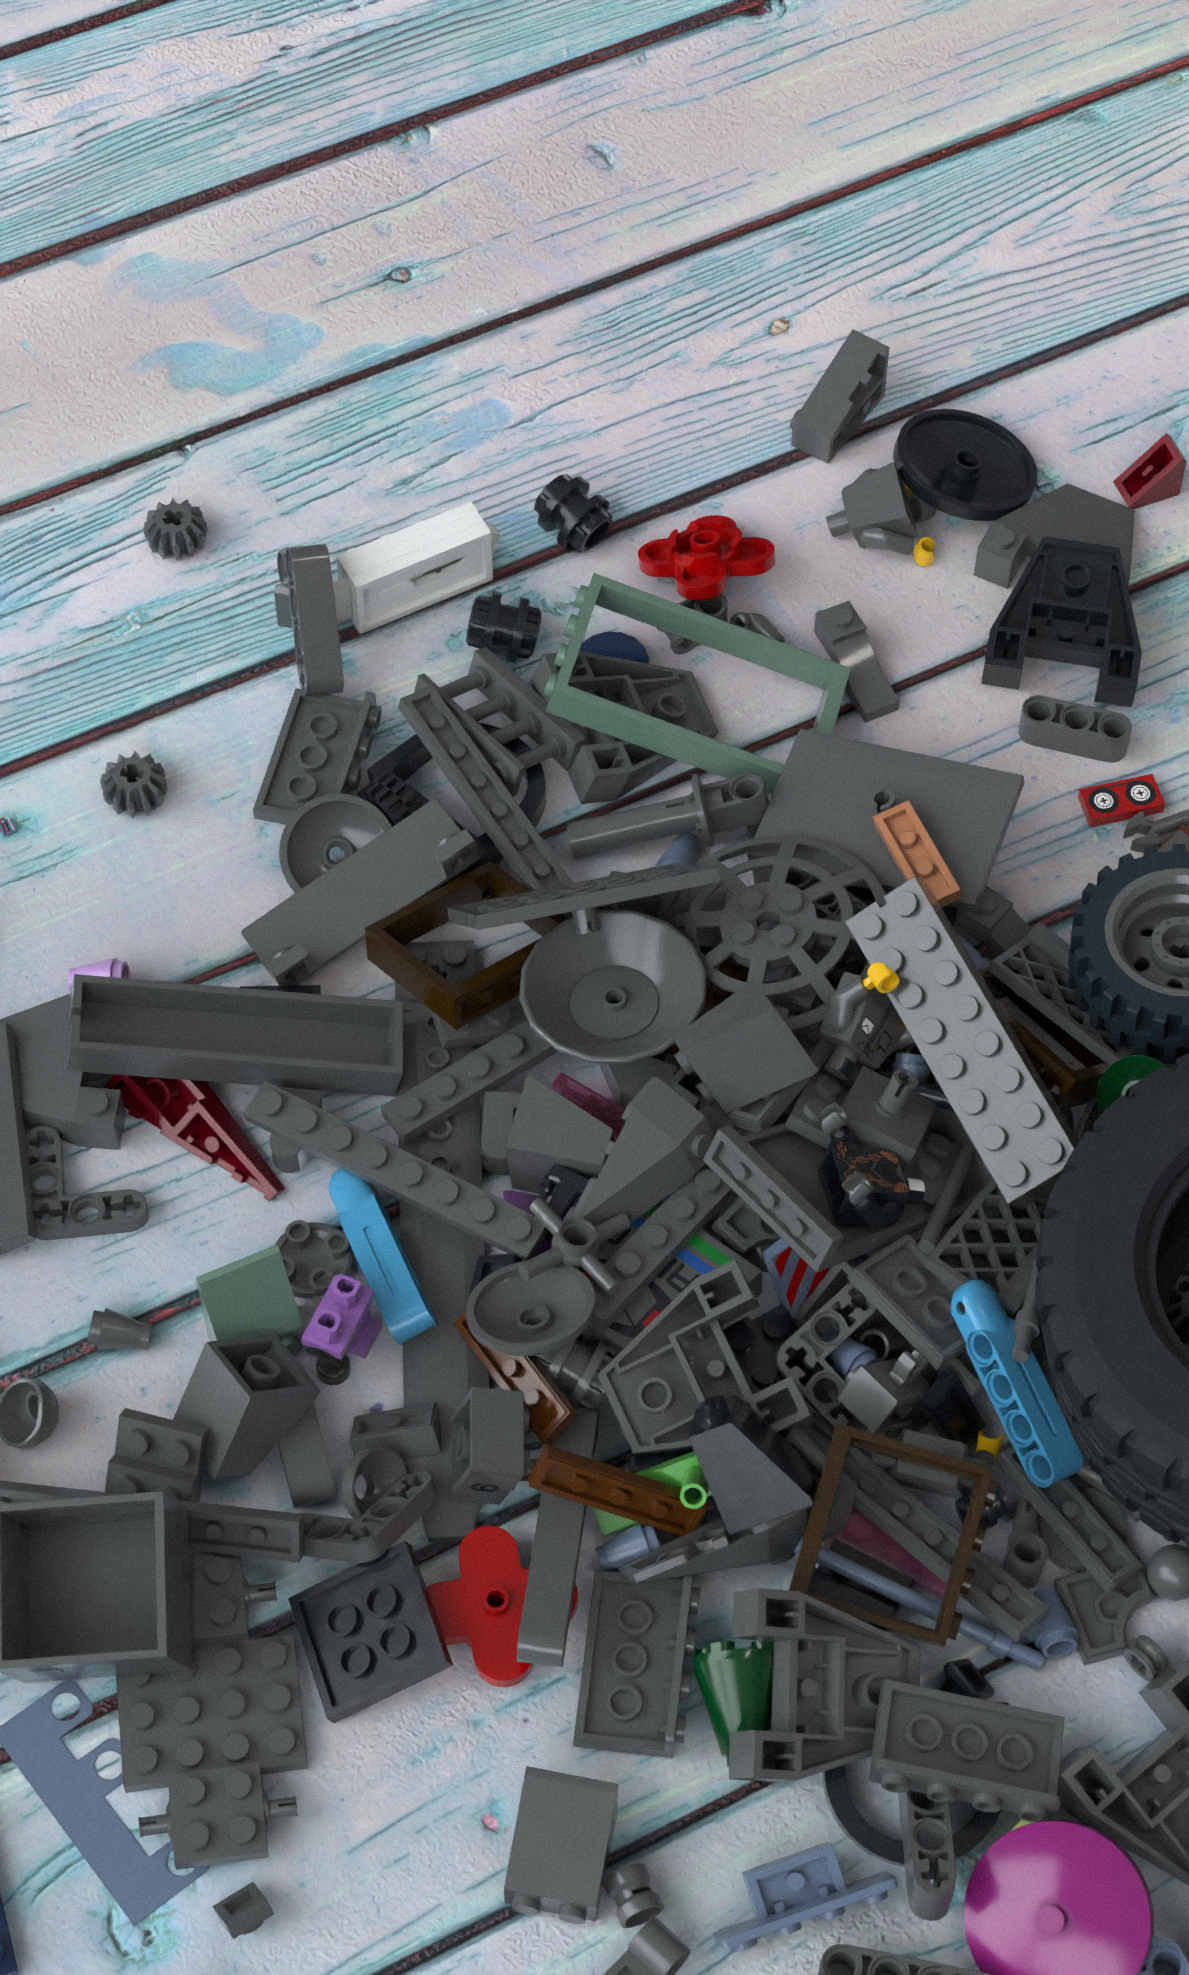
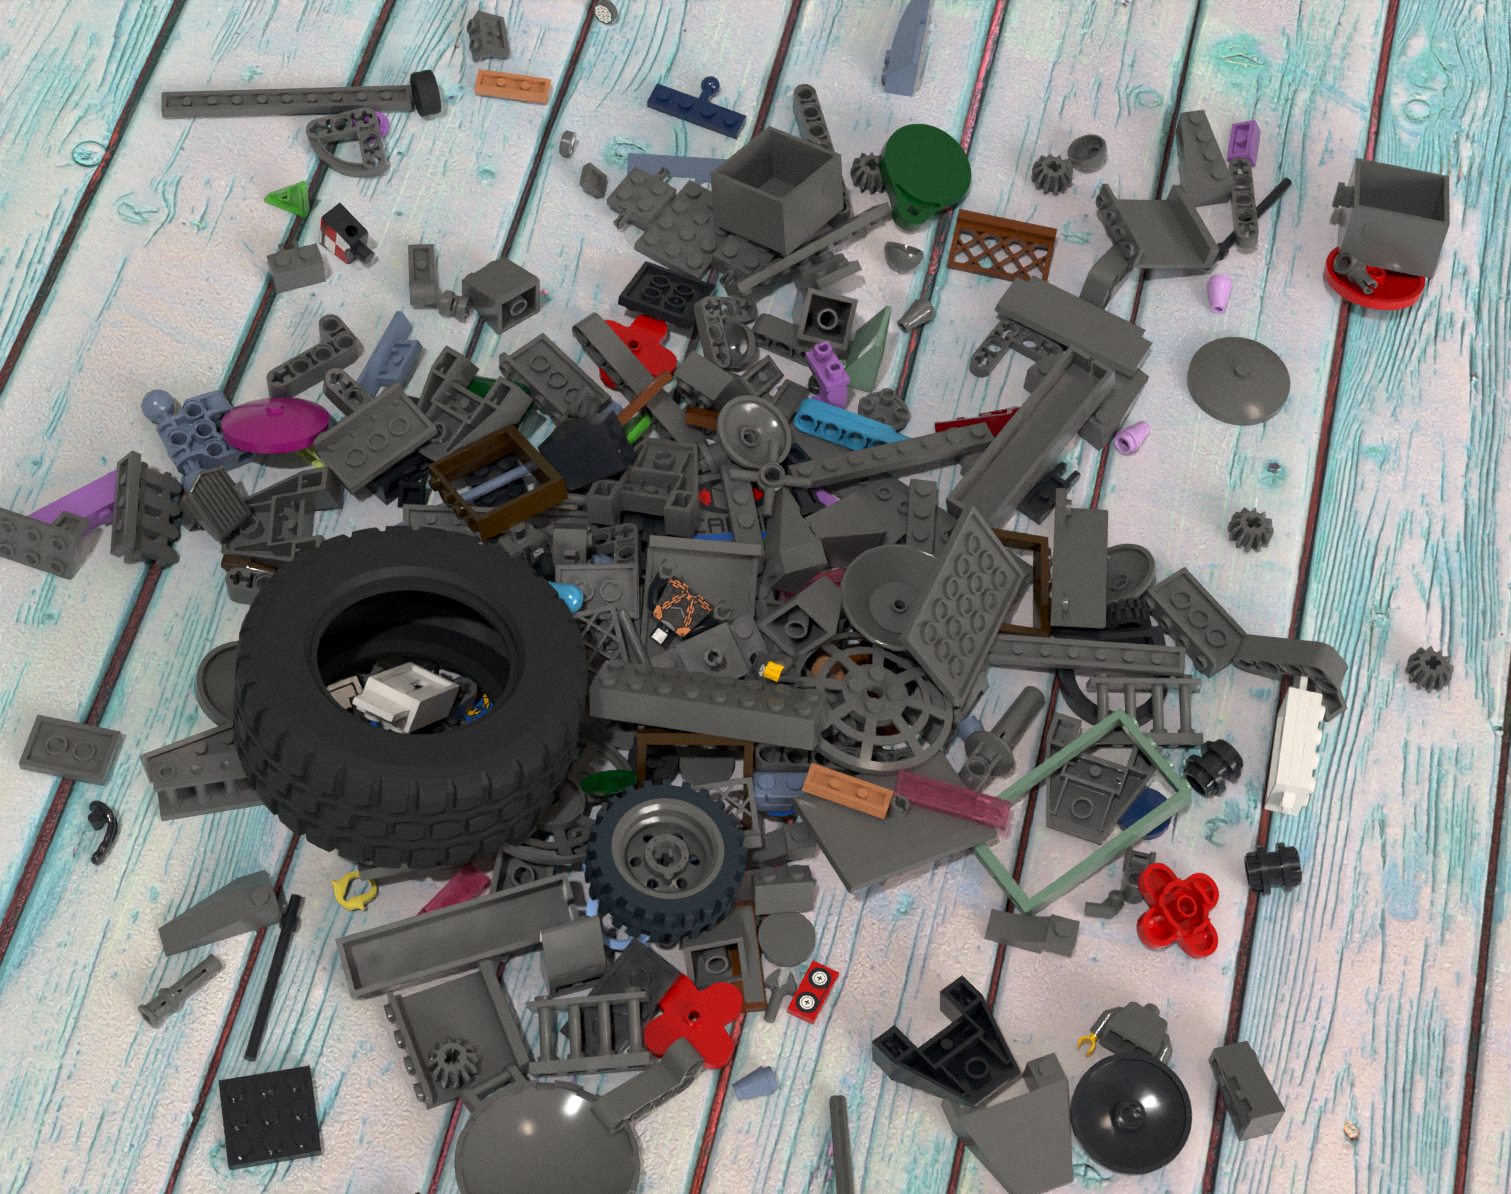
camera: 125 degrees right, 0 degrees up
(401, 1370) = (789, 398): none -> dark grey tile
(817, 775) = (952, 800): none -> clear pink plate
(1047, 887) = (782, 889): none -> dark grey brick
(1074, 728) = (875, 1016): dark grey beam -> none
(1082, 855) = (786, 938): none -> dark grey tile

